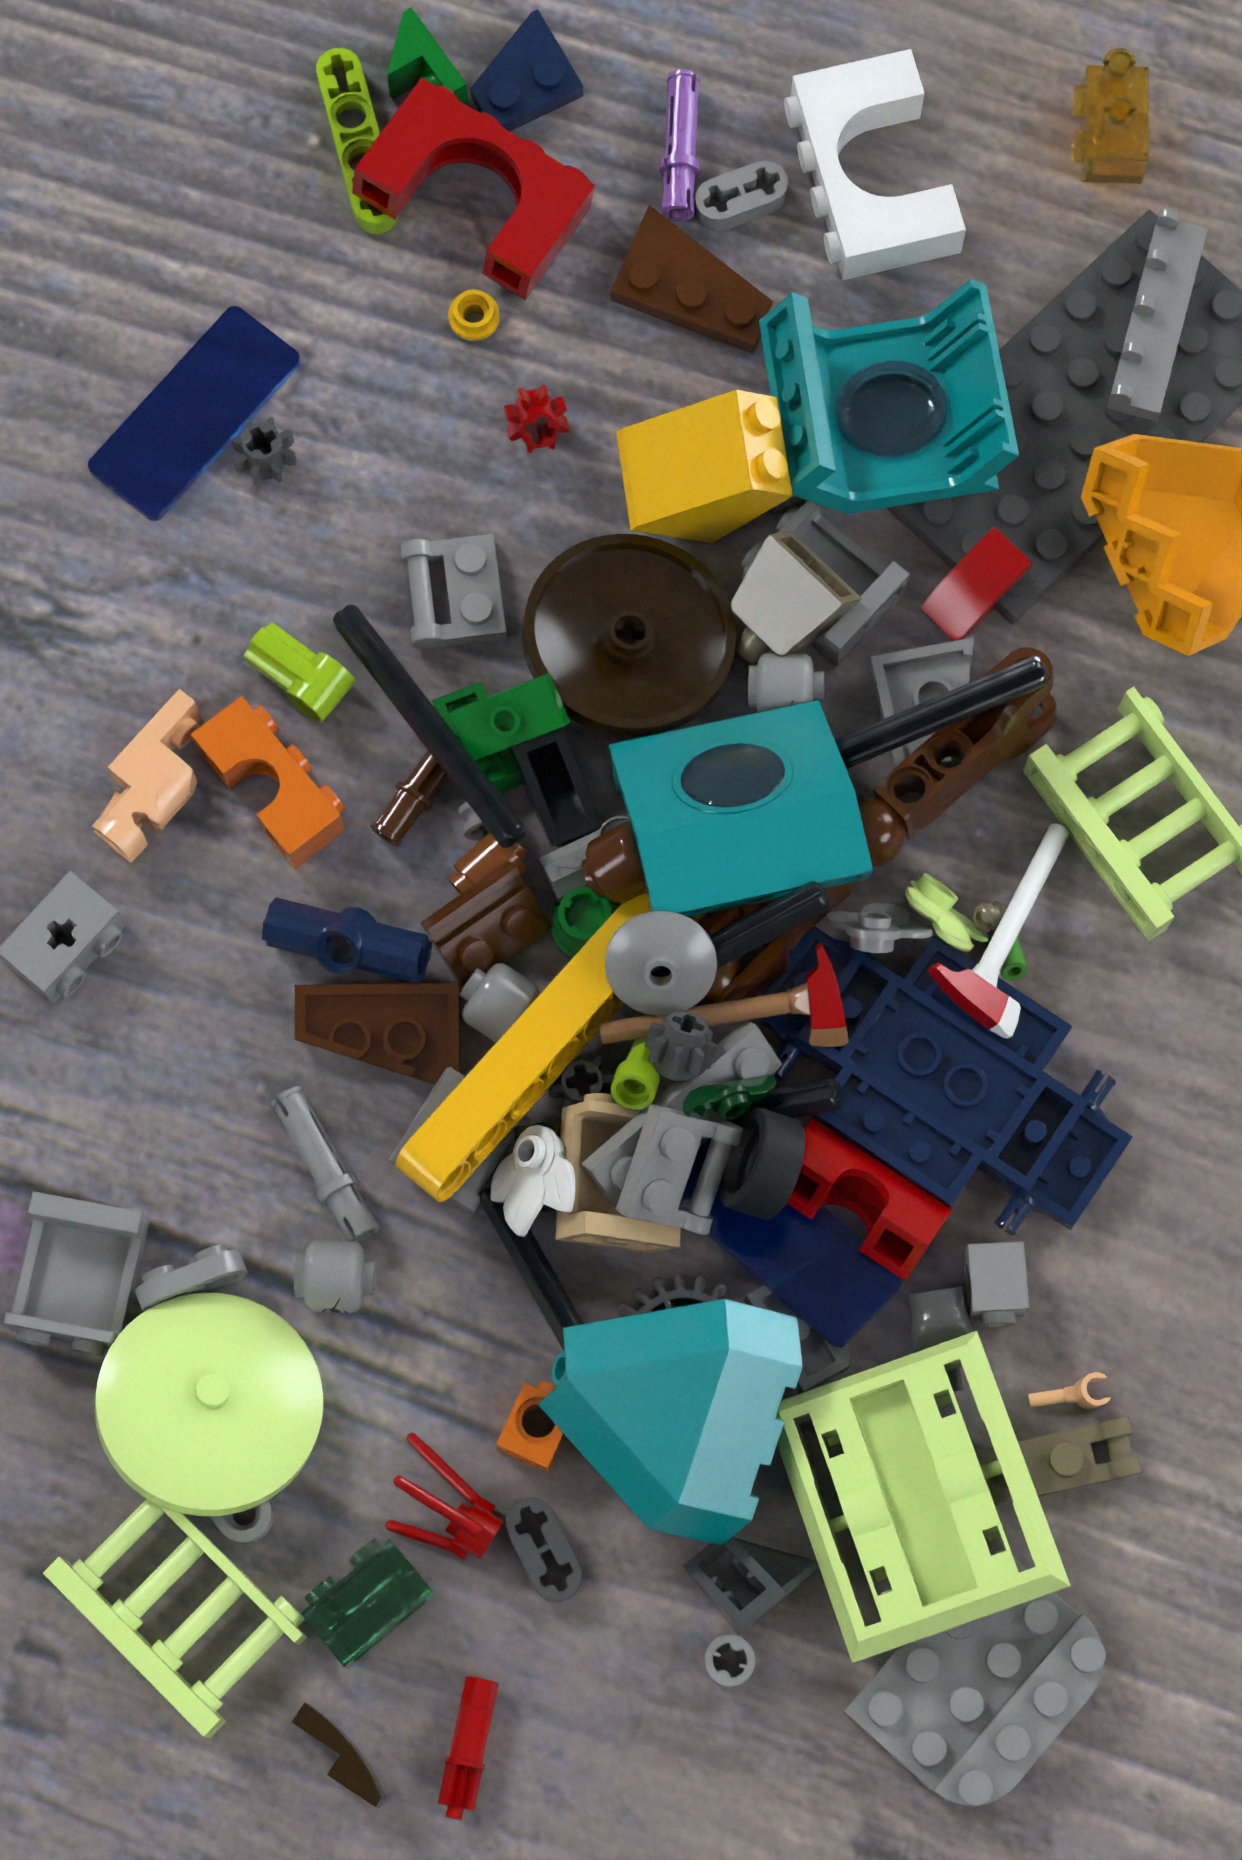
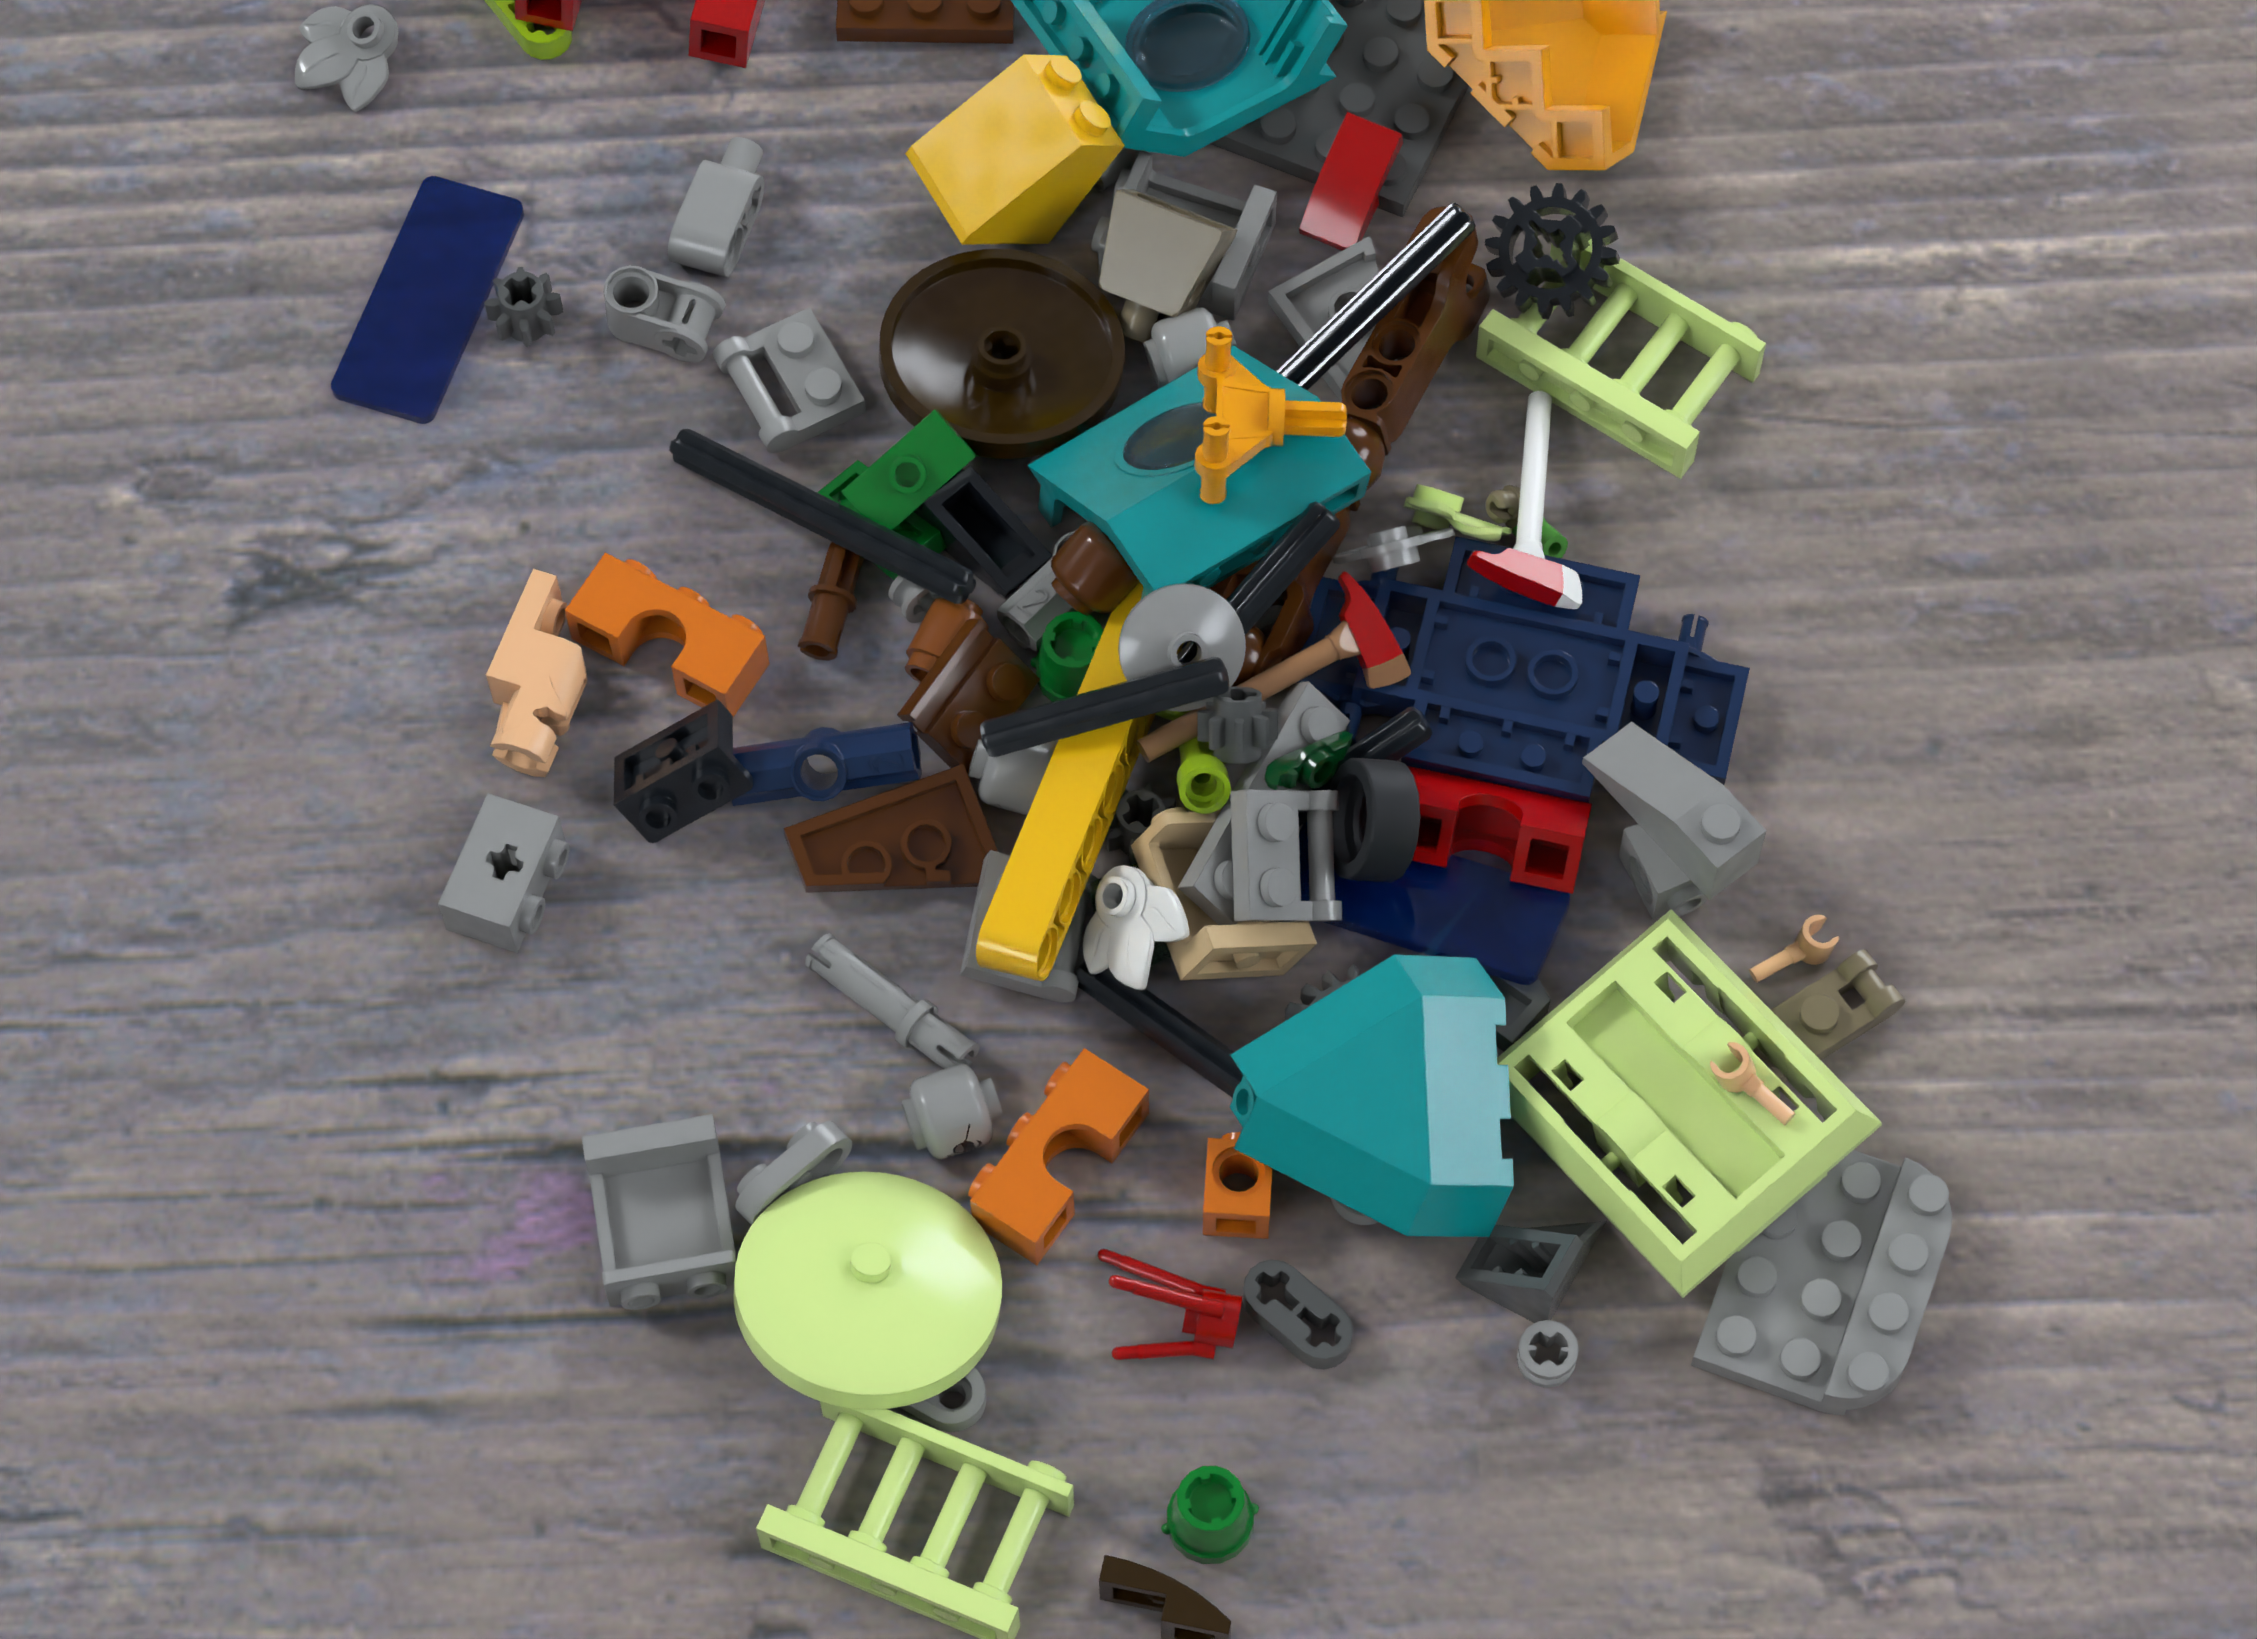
camera: 20 degrees left, 10 degrees down
(203, 176) = (343, 57): none -> light grey plate
(230, 906) = (680, 774): none -> black bracket
(310, 680) = (670, 519): lime piece -> none
(366, 1601) = (1127, 1434): clear green brick -> none
(379, 503) = (667, 312): none -> light grey piece
(407, 1693) = (1210, 1516): none -> green piece
(441, 1311) = (1084, 1108): none -> orange arch
(452, 422) = (719, 210): none -> light grey piece
(468, 1747) = (1301, 1546): red piece -> none
(470, 302) = (696, 86): yellow plate -> none
(536, 418) = (800, 164): red gear -> none
(579, 991) = (1105, 707): none -> black axle
(787, 792) = (1248, 416): none -> light orange axle
(937, 1319) = (1619, 919): dark grey piece -> none
(974, 1520) = (1746, 1080): none -> light nougat hand
(1015, 1244) = (1679, 808): none -> light grey slope
(1091, 719) = (1568, 234): none -> black gear

